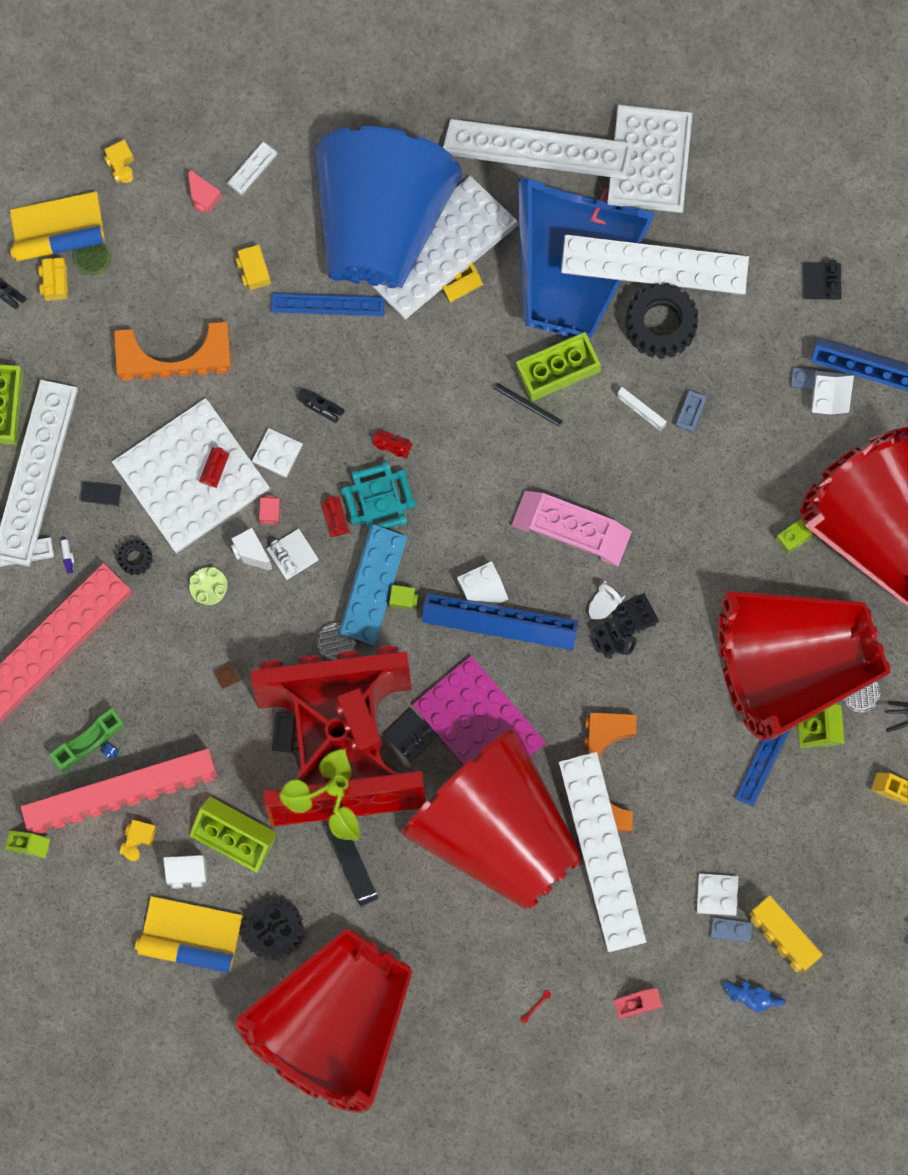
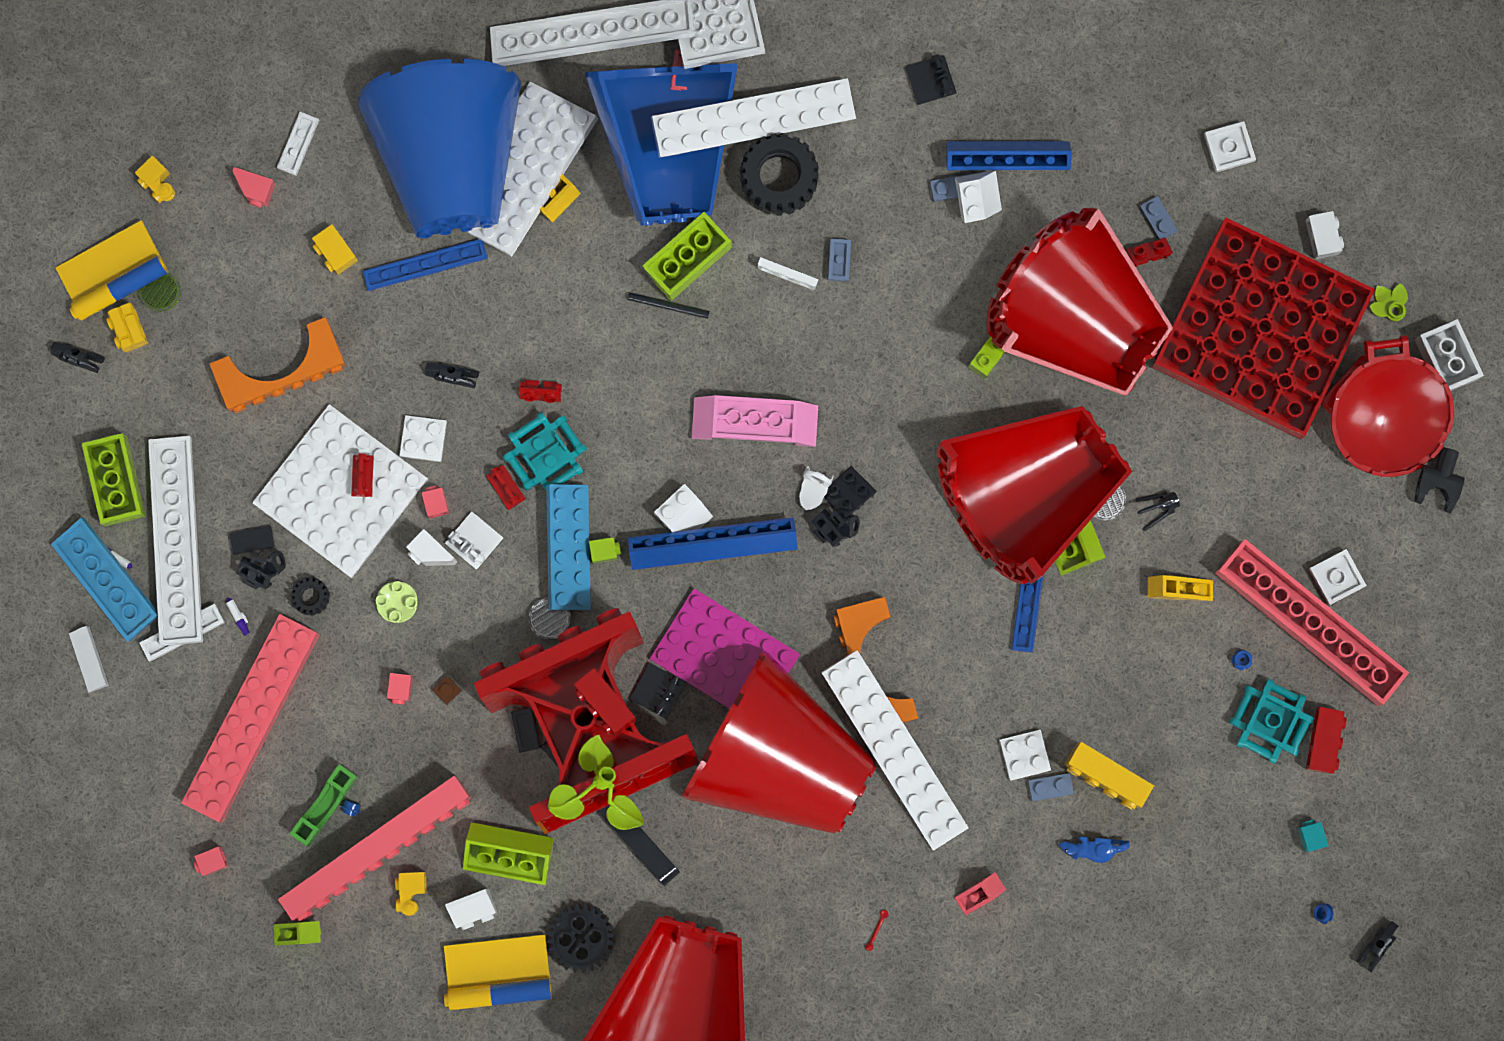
camera: 25 degrees left, 5 degrees up
(106, 522) = (268, 569): none -> black piece
(186, 660) = (399, 688): none -> coral brick

